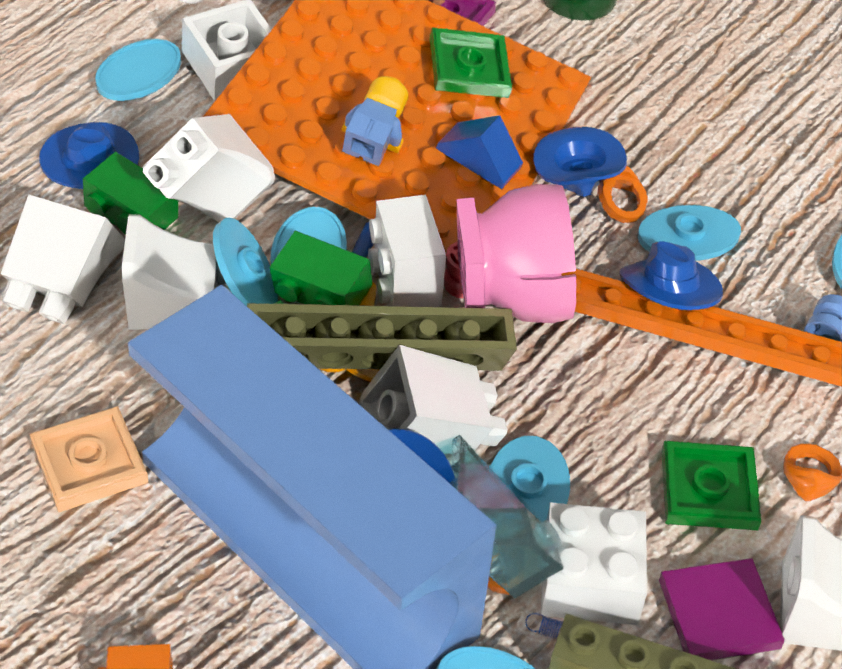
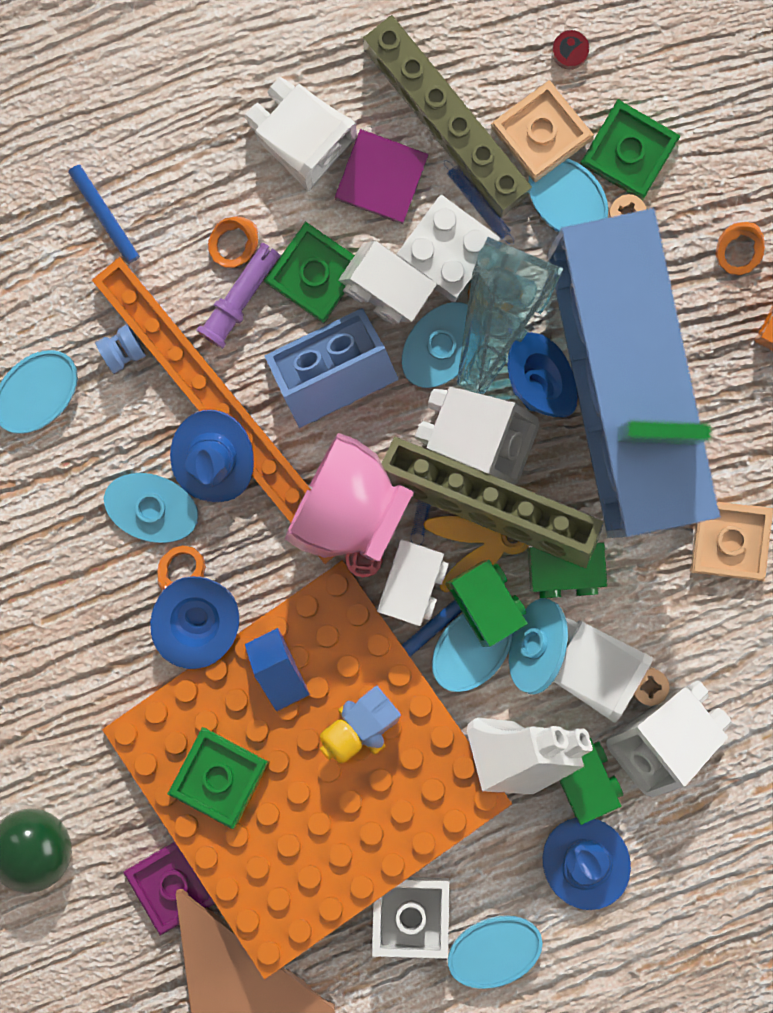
camera: 145 degrees left, 40 degrees up
(106, 295) = (657, 680): none -> light nougat wheel
(244, 347) = (664, 432): none -> green tile
(624, 402) = (331, 367): none -> medium blue slope
(636, 473) = (387, 283): none -> white brick
(763, 406) = (229, 310): none -> medium lavender pin

